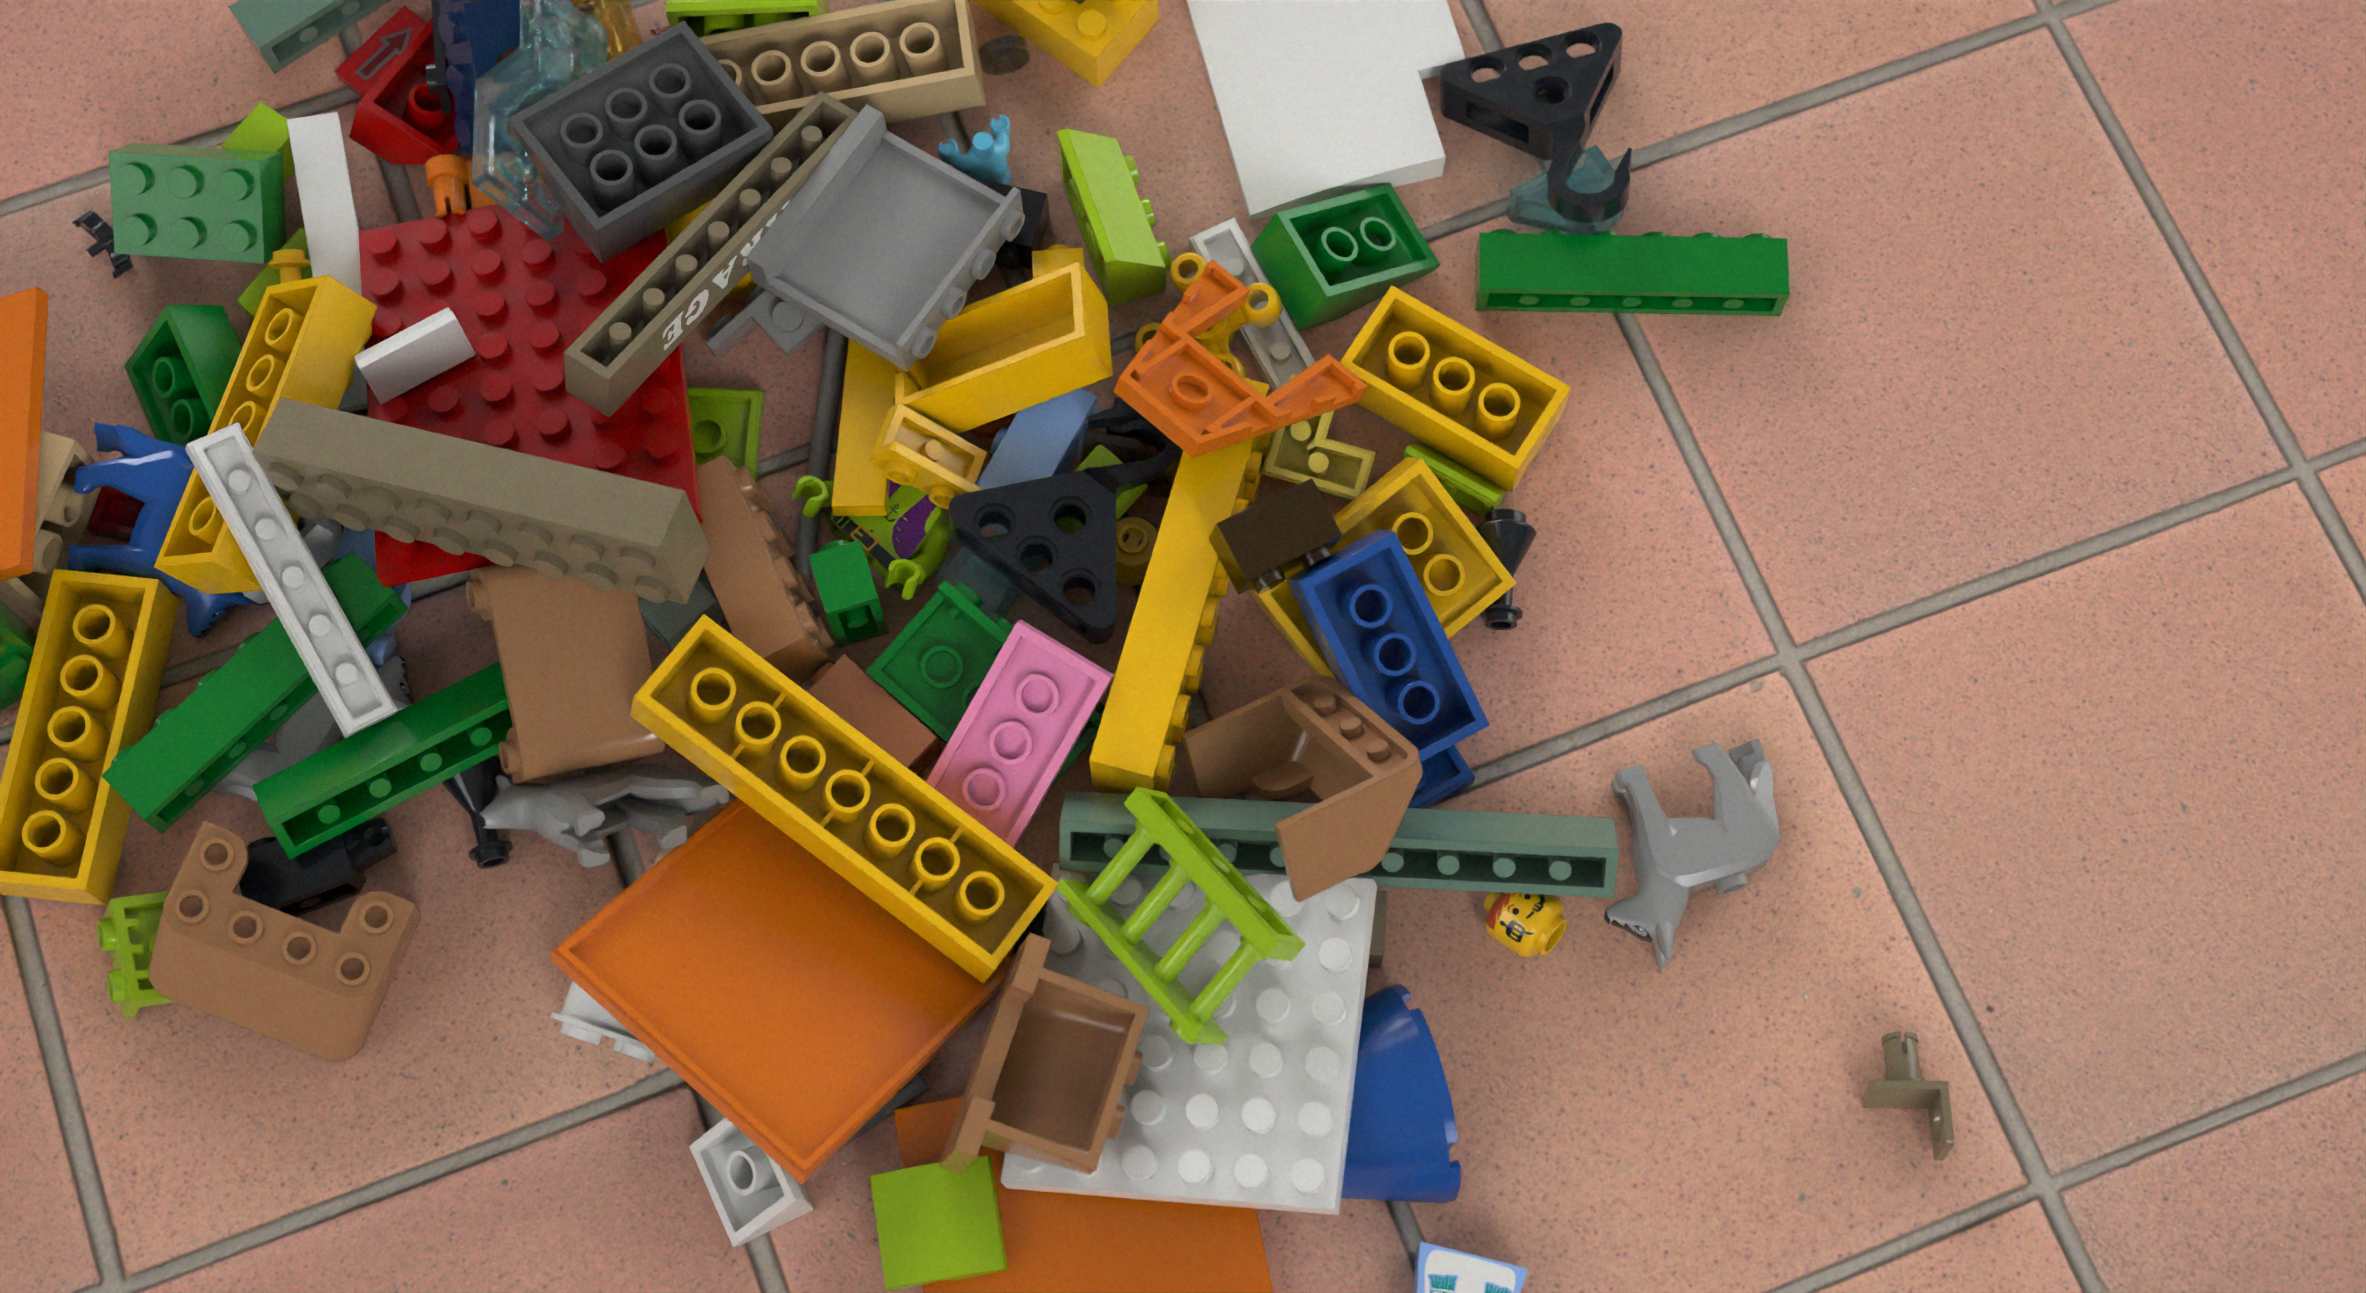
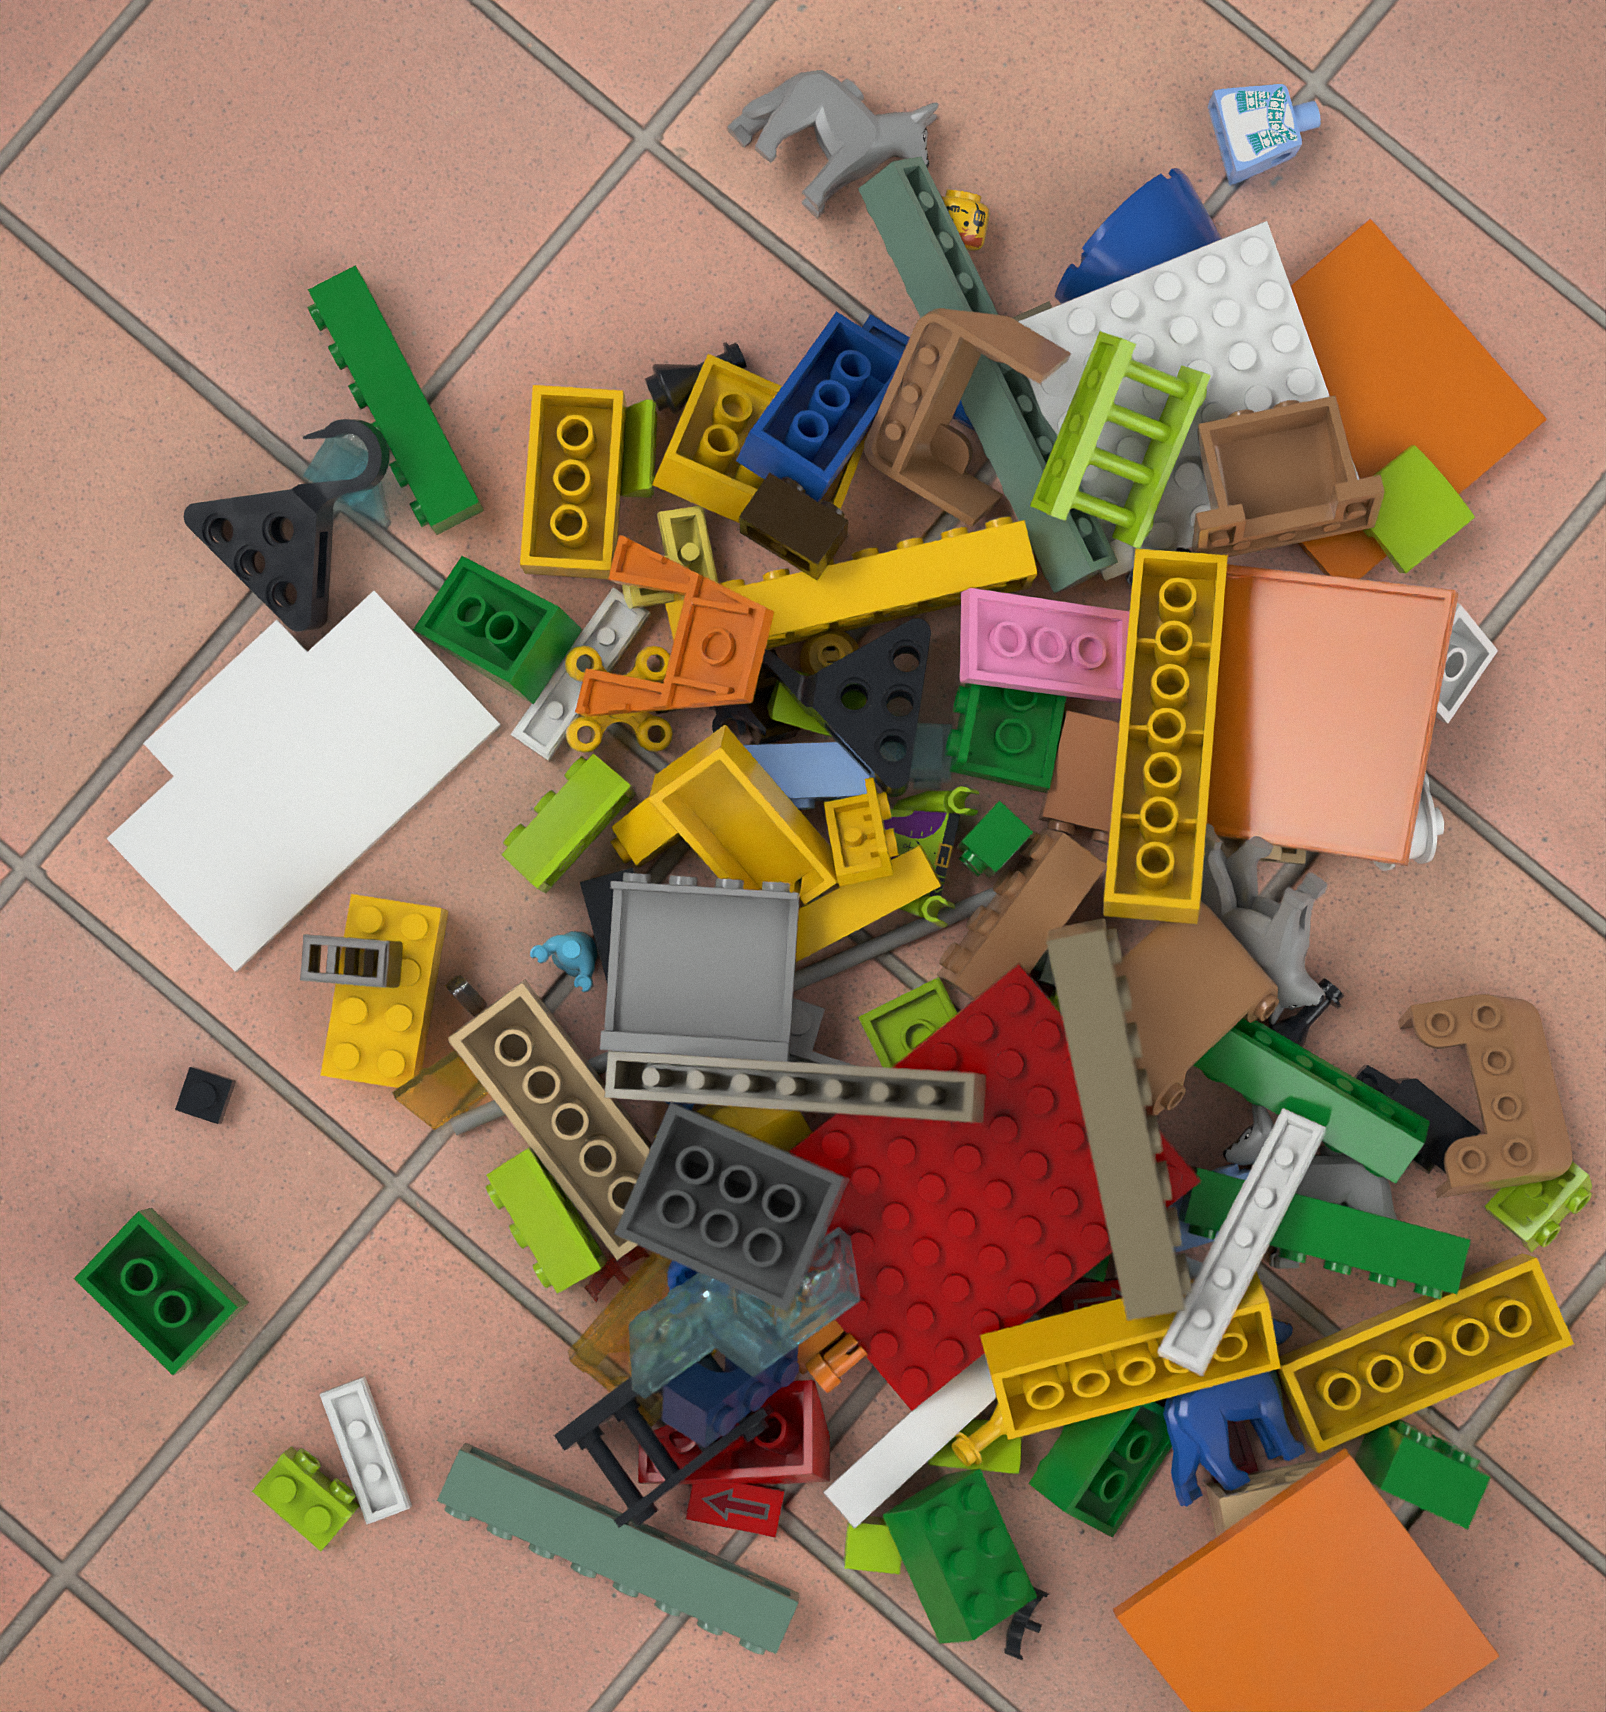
camera: 120 degrees left, 15 degrees up
(414, 355) = (1006, 1277): white panel -> none

